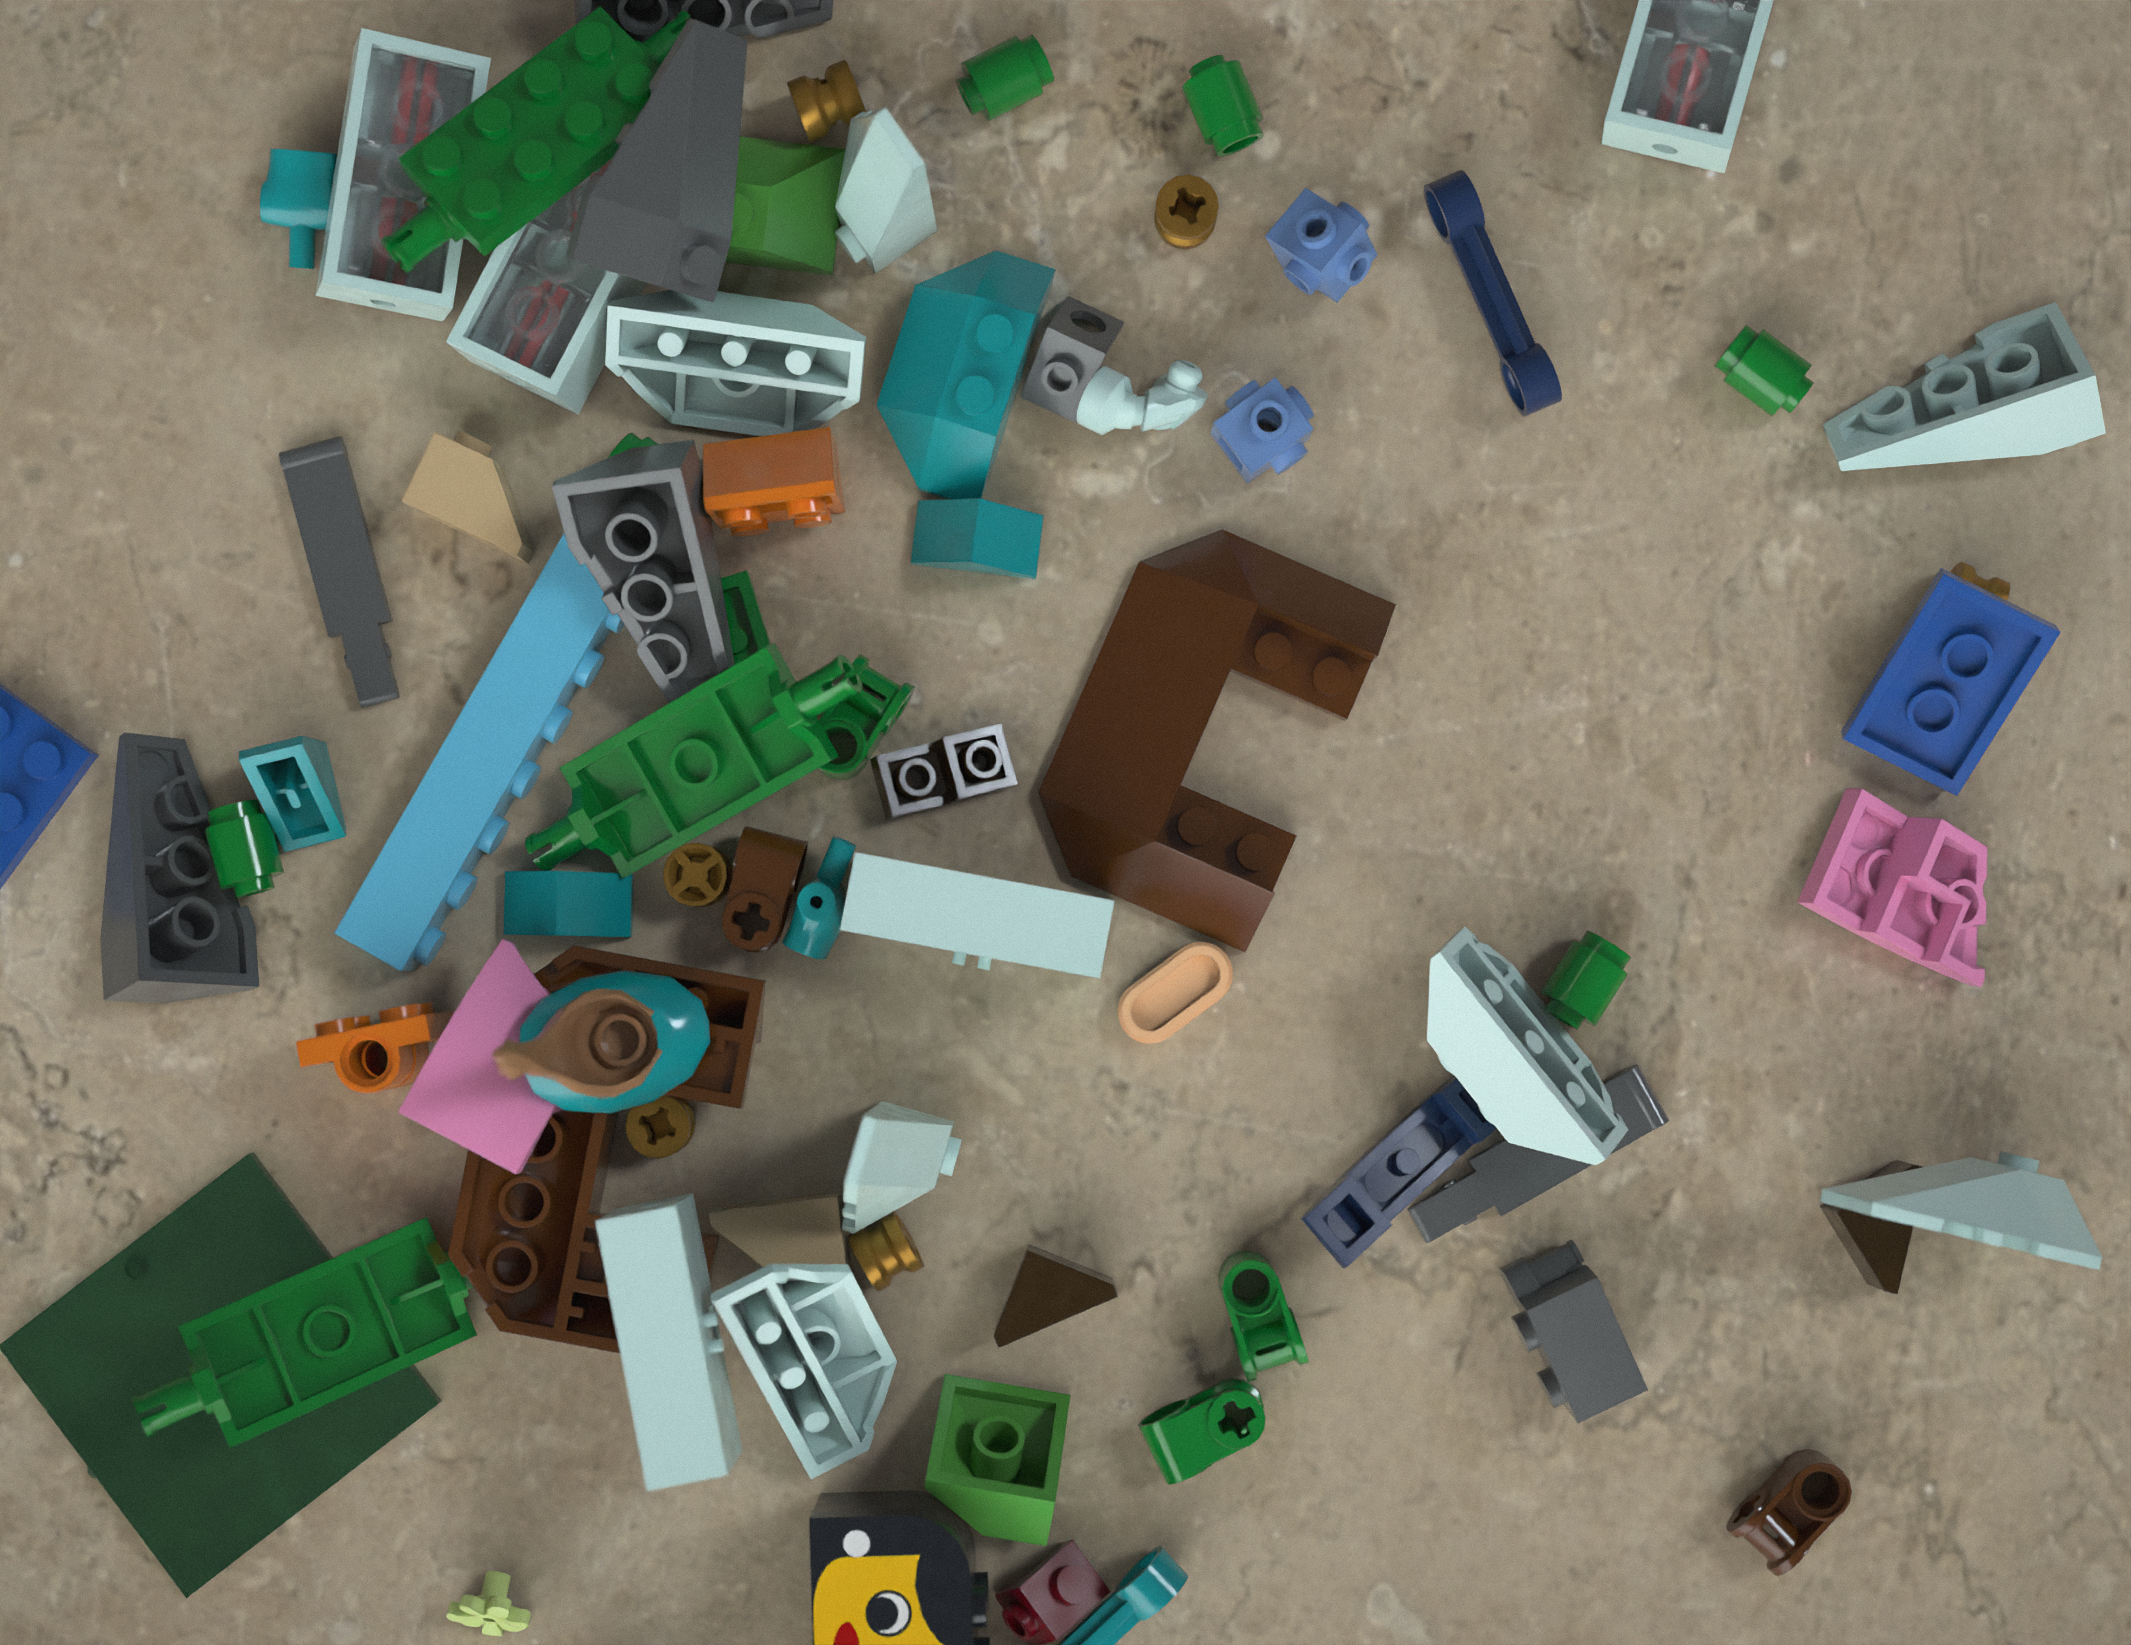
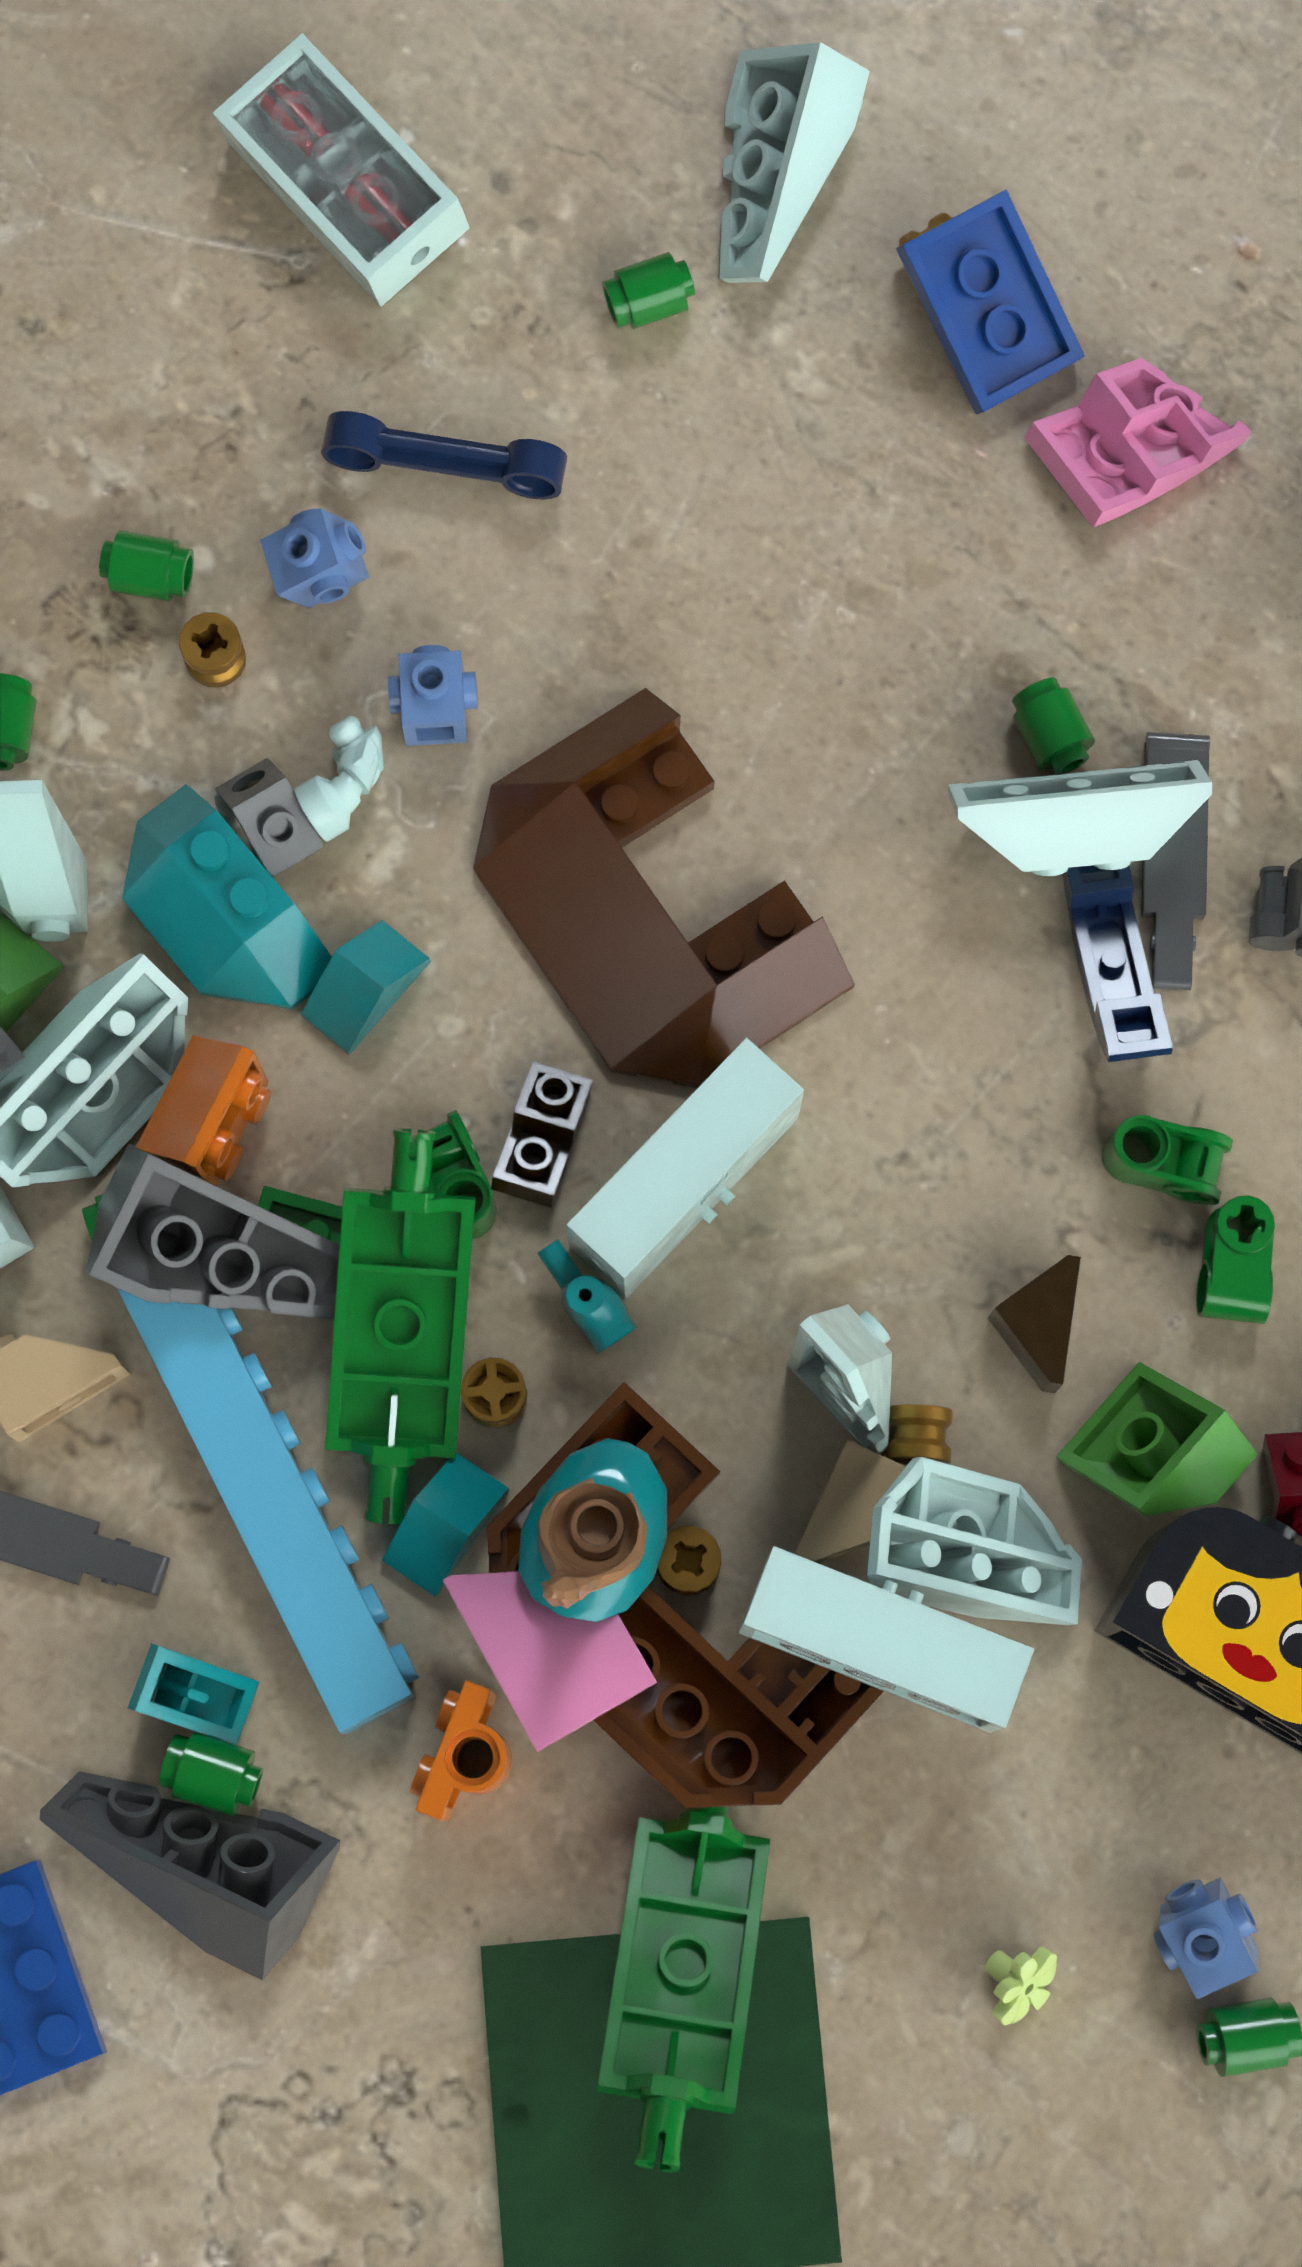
camera: 60 degrees left, 10 degrees down
(763, 875) = (535, 1338): reddish brown piece -> none
(1175, 992) = (851, 1062): light nougat tile -> none

